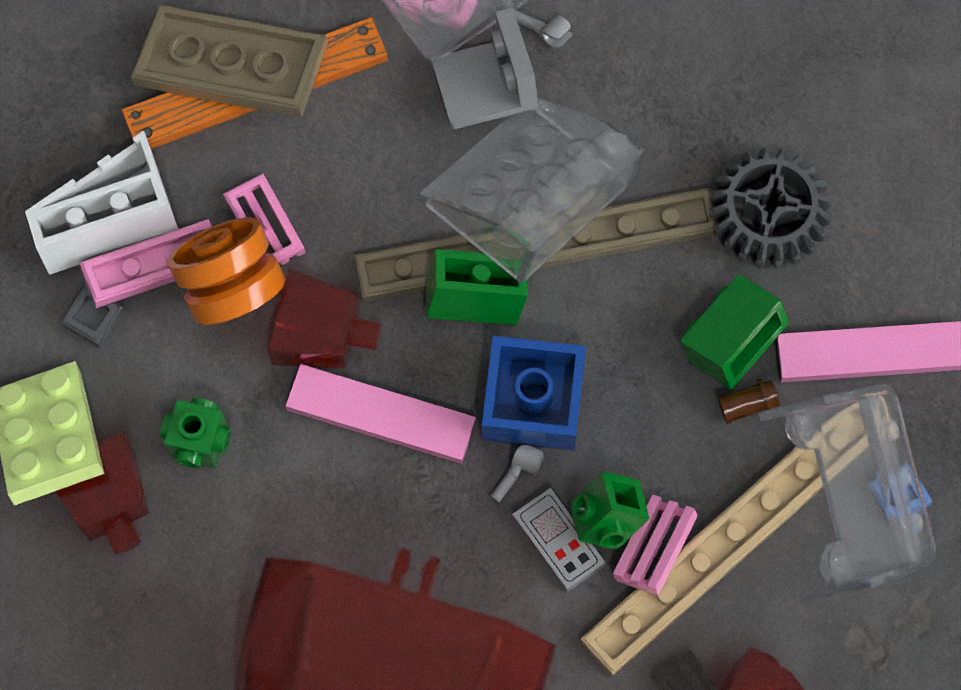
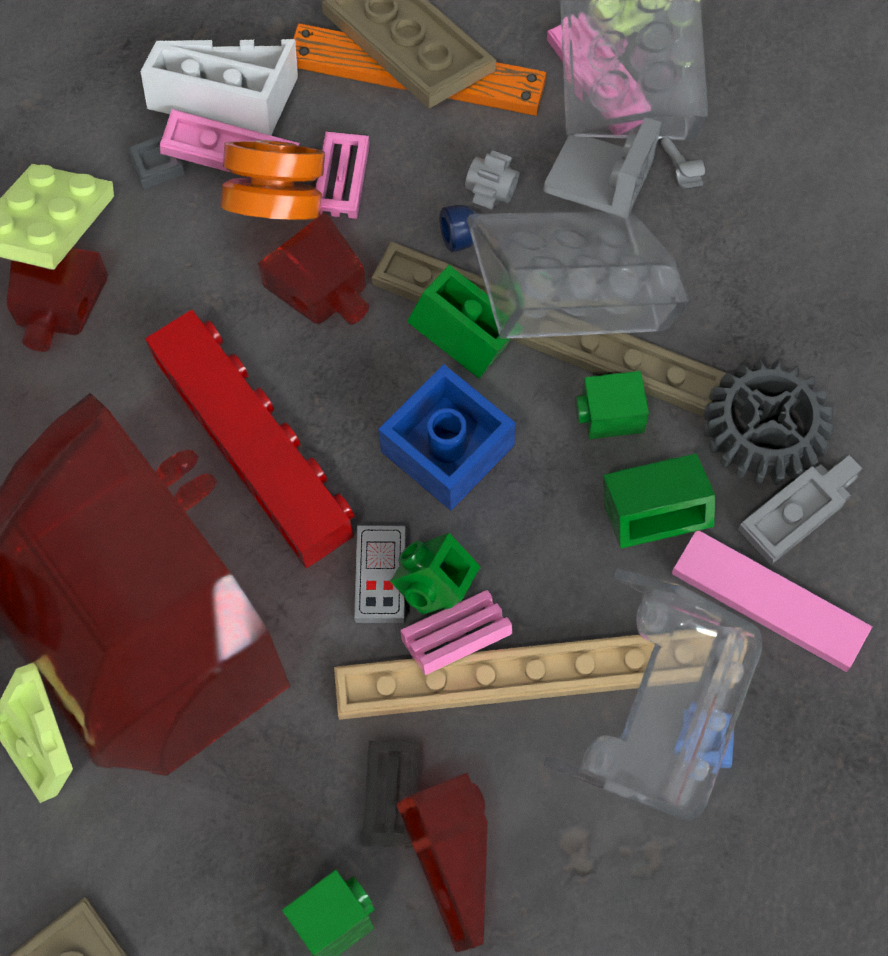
camera: 35 degrees right, 5 degrees down
(199, 447) = (155, 292): green brick -> none
(369, 501) = (251, 439): none -> red brick
(381, 413) = (316, 377): bright pink tile -> none
(401, 146) = (492, 179): none -> light grey gear
(402, 207) = (455, 227): none -> dark blue piece
(526, 459) = (401, 488): light grey hand -> none
(641, 276) = (613, 405): none -> green brick
(748, 401) = (614, 559): reddish brown pin -> none
(843, 264) = (799, 509): none -> light grey hinge

